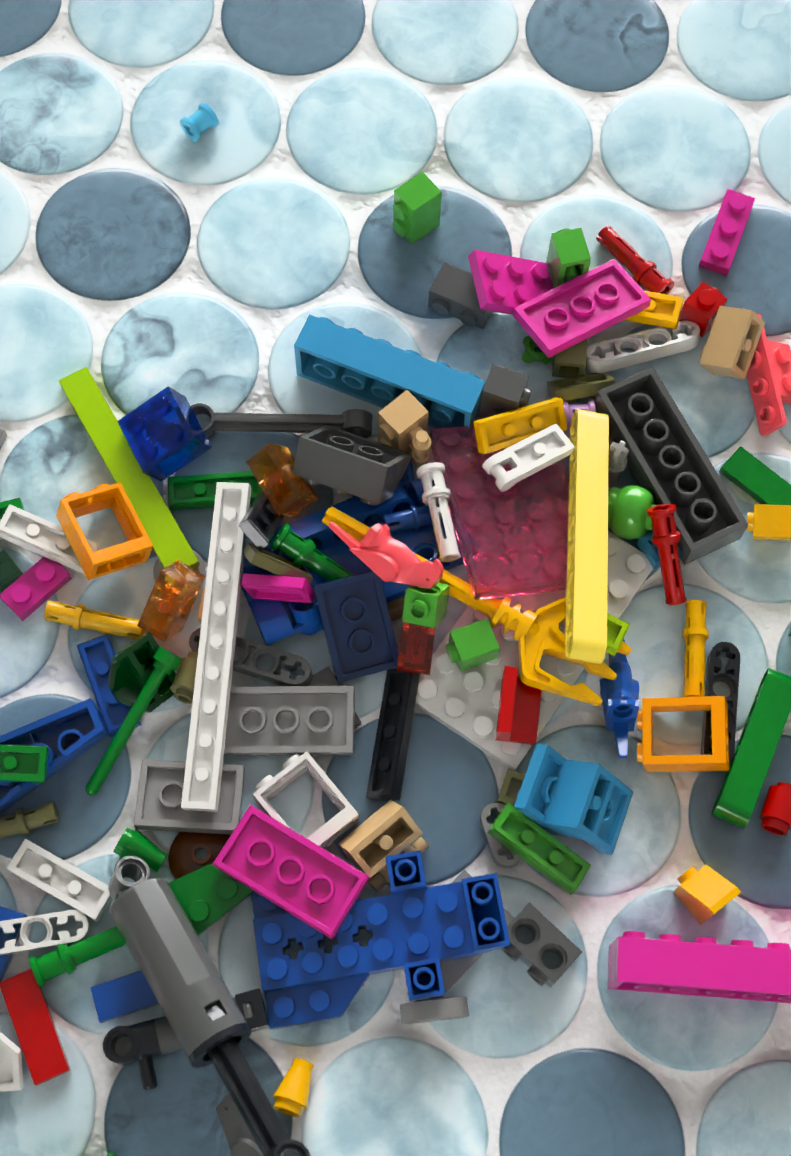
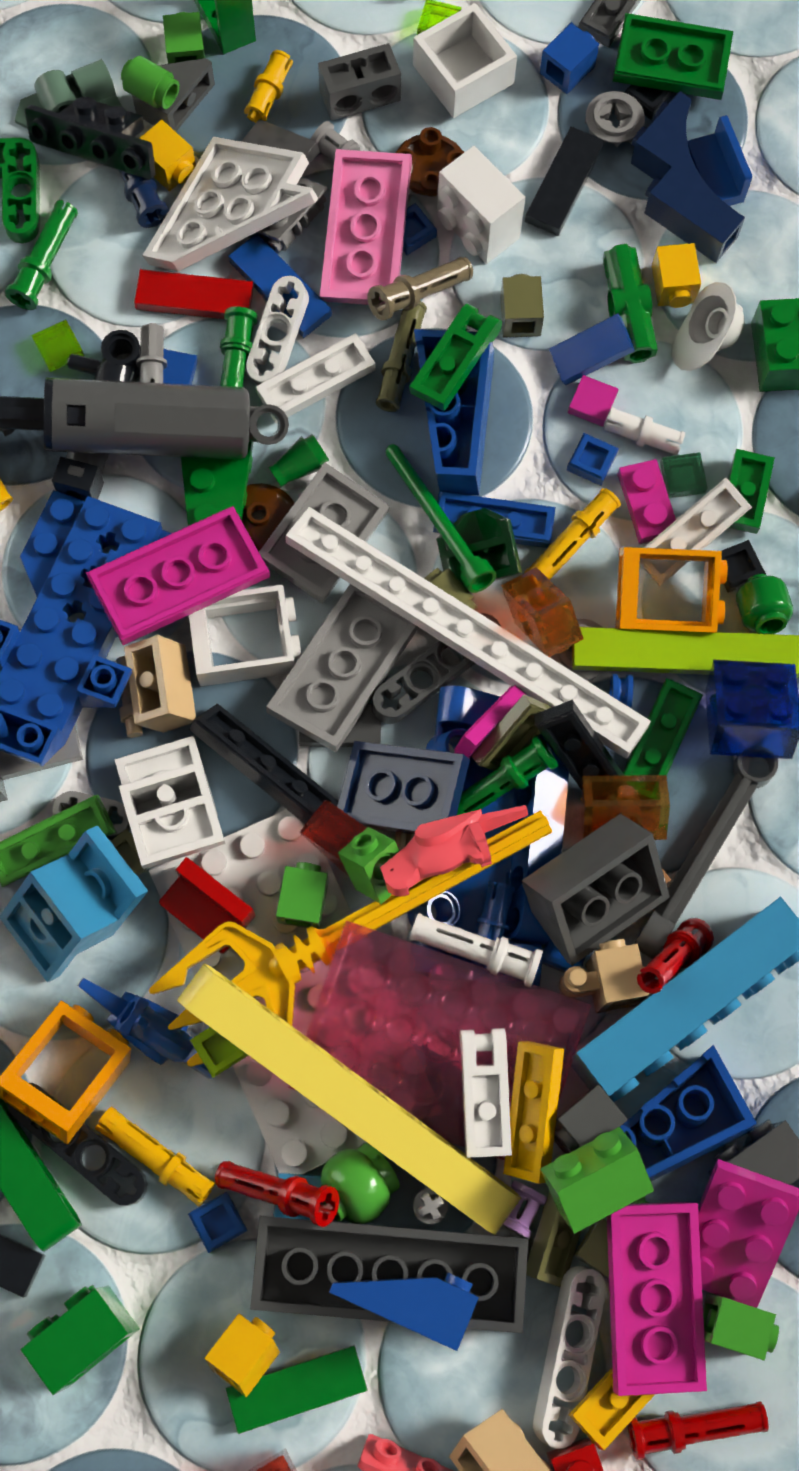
camera: 120 degrees right, 5 degrees up
(20, 642) = (592, 459): none -> blue tile
(49, 500) = (741, 564): none -> black tile
(77, 468) = (764, 604): none -> green head
(119, 1013) = (151, 353): none -> light grey axle
(139, 1112) = (57, 344): none -> clear neon green tile
(196, 528) = (622, 689): none -> blue bush
(361, 396) = (679, 952): none -> red pin
(462, 776) = (168, 802): none -> white bracket
(474, 347) = (689, 1117): none -> blue wedge
(541, 360) = (597, 1179): none -> bright green brick
(680, 427) = (420, 1304): none -> blue slope
(706, 588) = (217, 1222): none -> blue tile

